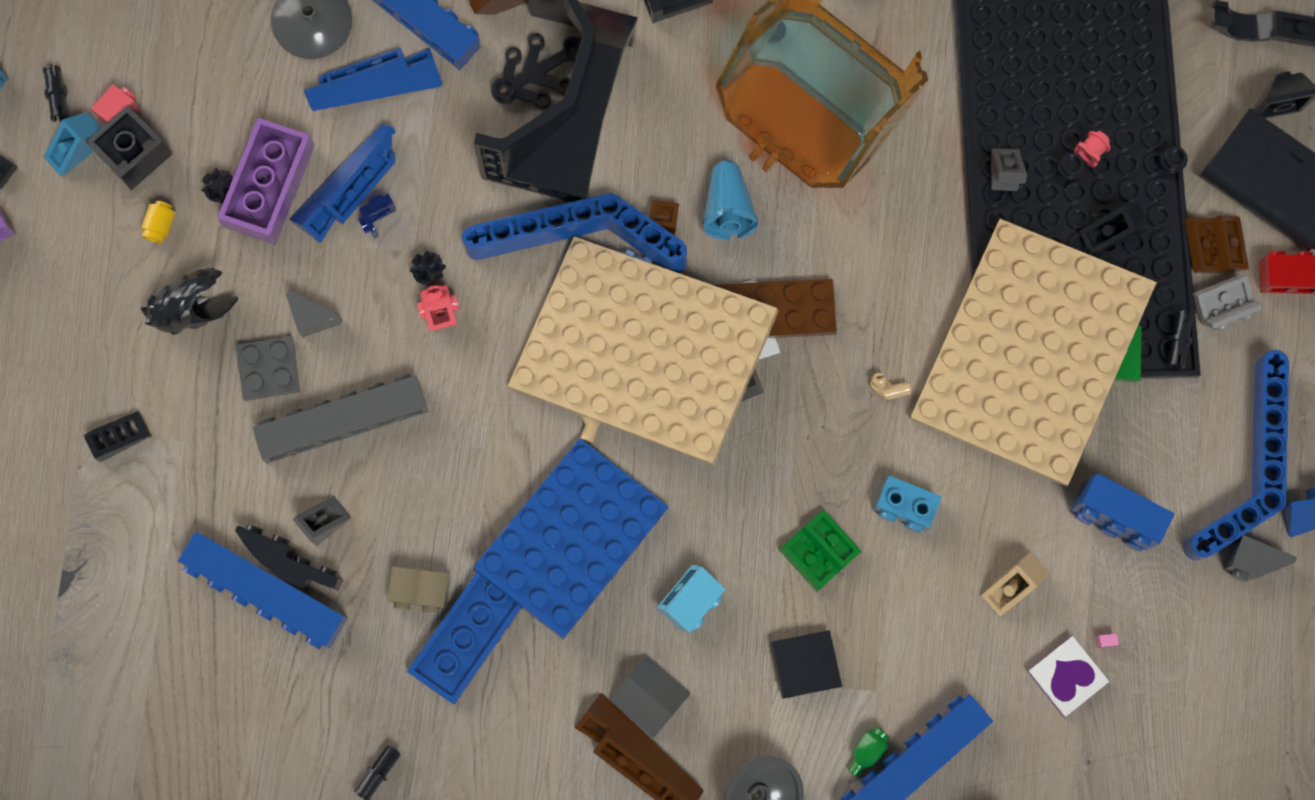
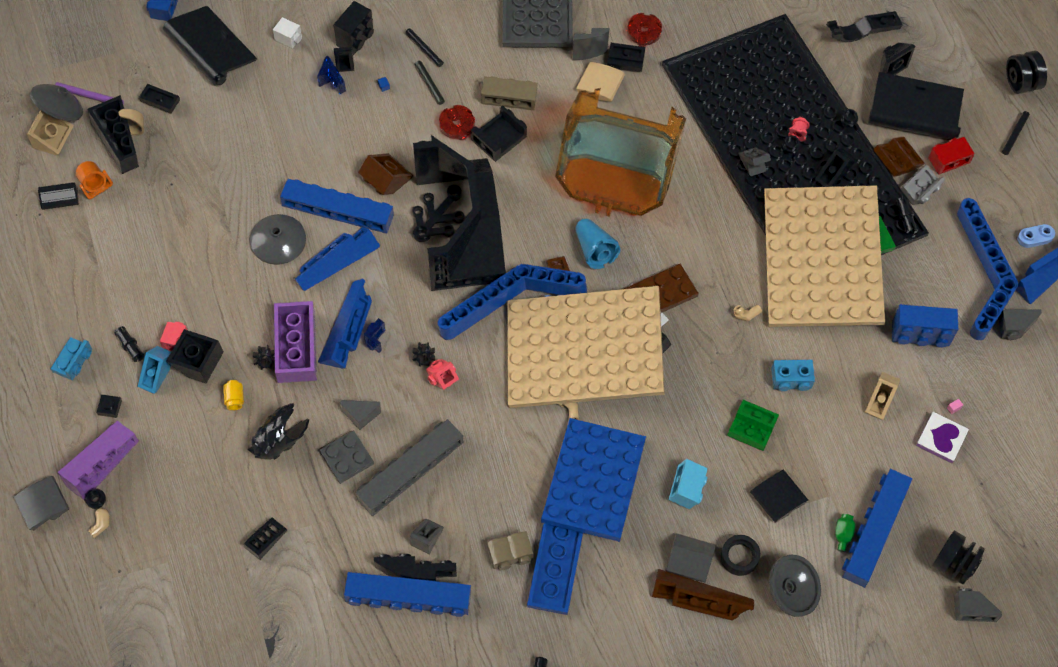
camera: 20 degrees left, 15 degrees down
(733, 711) = (749, 543): none -> black tyre

